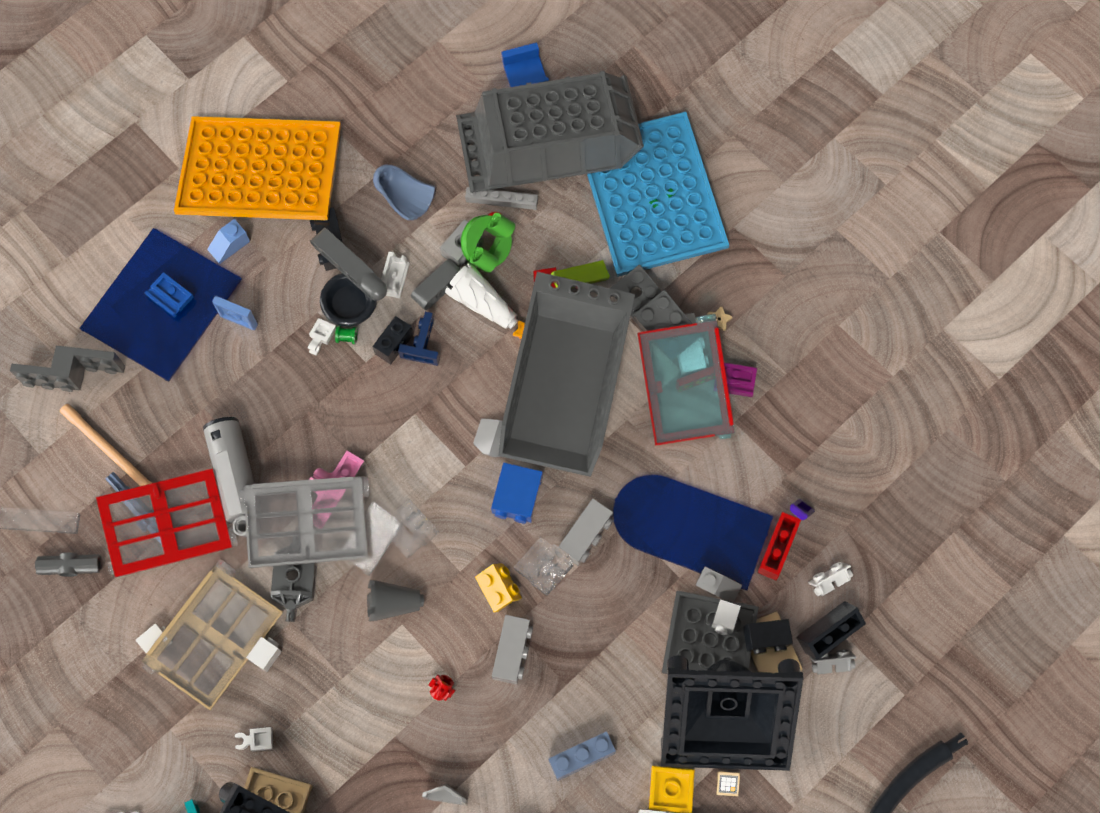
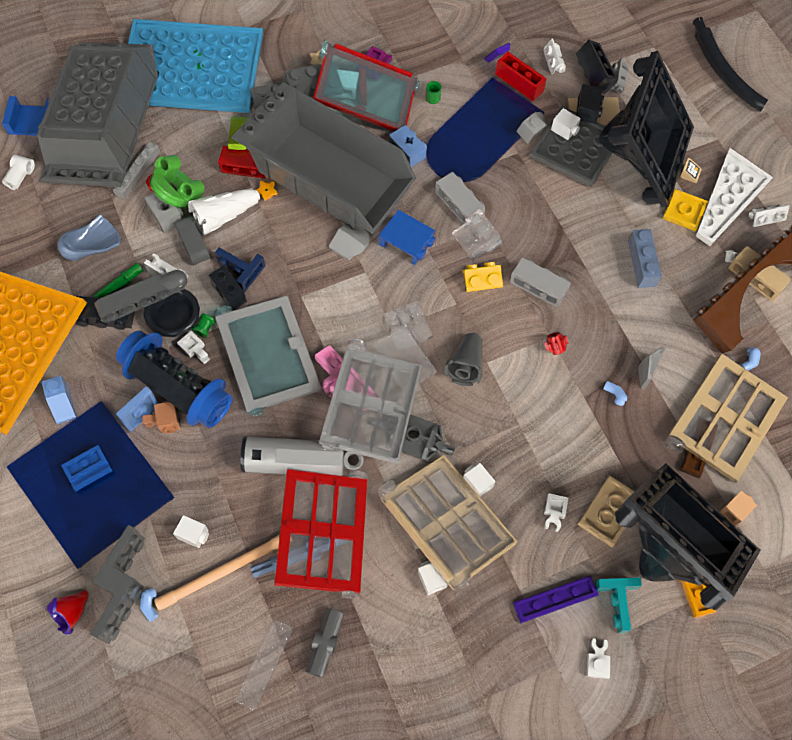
camera: 75 degrees left, 5 degrees down
(38, 337) = (68, 610): none -> red hat
(63, 398) = (146, 604): none -> light blue arm
(136, 409) = (191, 532): none -> white brick
(168, 765) = (555, 599): none -> dark purple tile
(239, 340) = (165, 417): none -> nougat brick
(271, 331) = (168, 376): none -> brick
(337, 405) = (267, 354): none -> clear light blue door
(374, 242) = (120, 281): none -> green axle
(408, 770) = (620, 395): none -> light blue arm
(462, 91) = (18, 169): none -> white piece
(636, 443) = (408, 142): none -> medium blue brick
(720, 450) = (433, 92): none -> green beam

